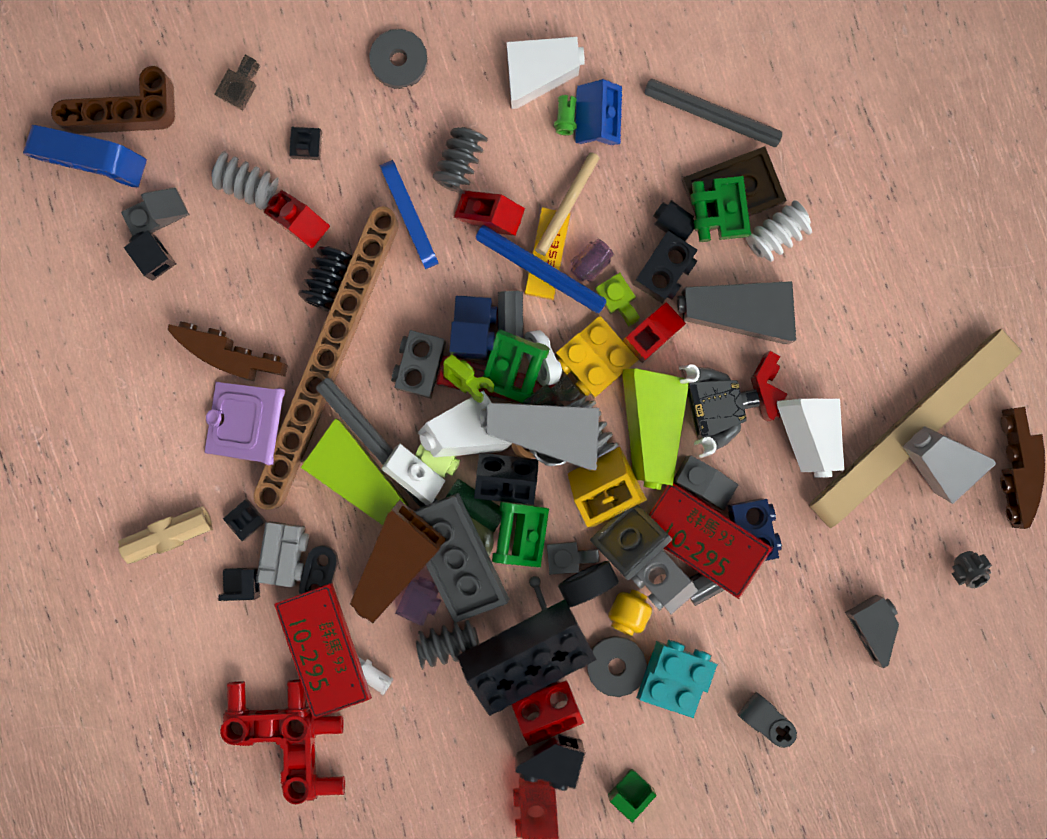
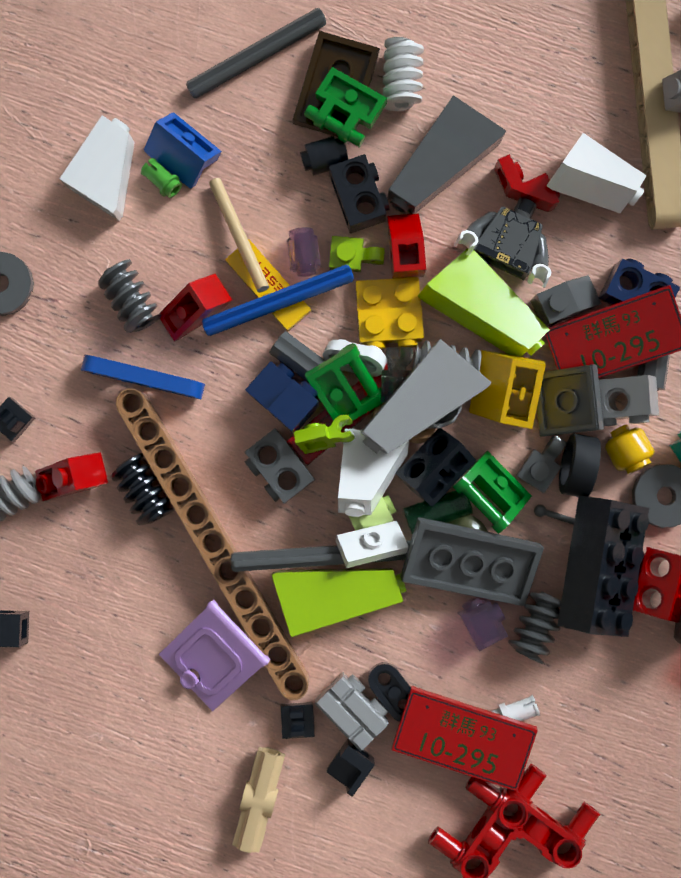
camera: 50 degrees left, 0 degrees up
(217, 352) = (132, 633): reddish brown slope -> none
(398, 556) = (435, 611): reddish brown slope -> none

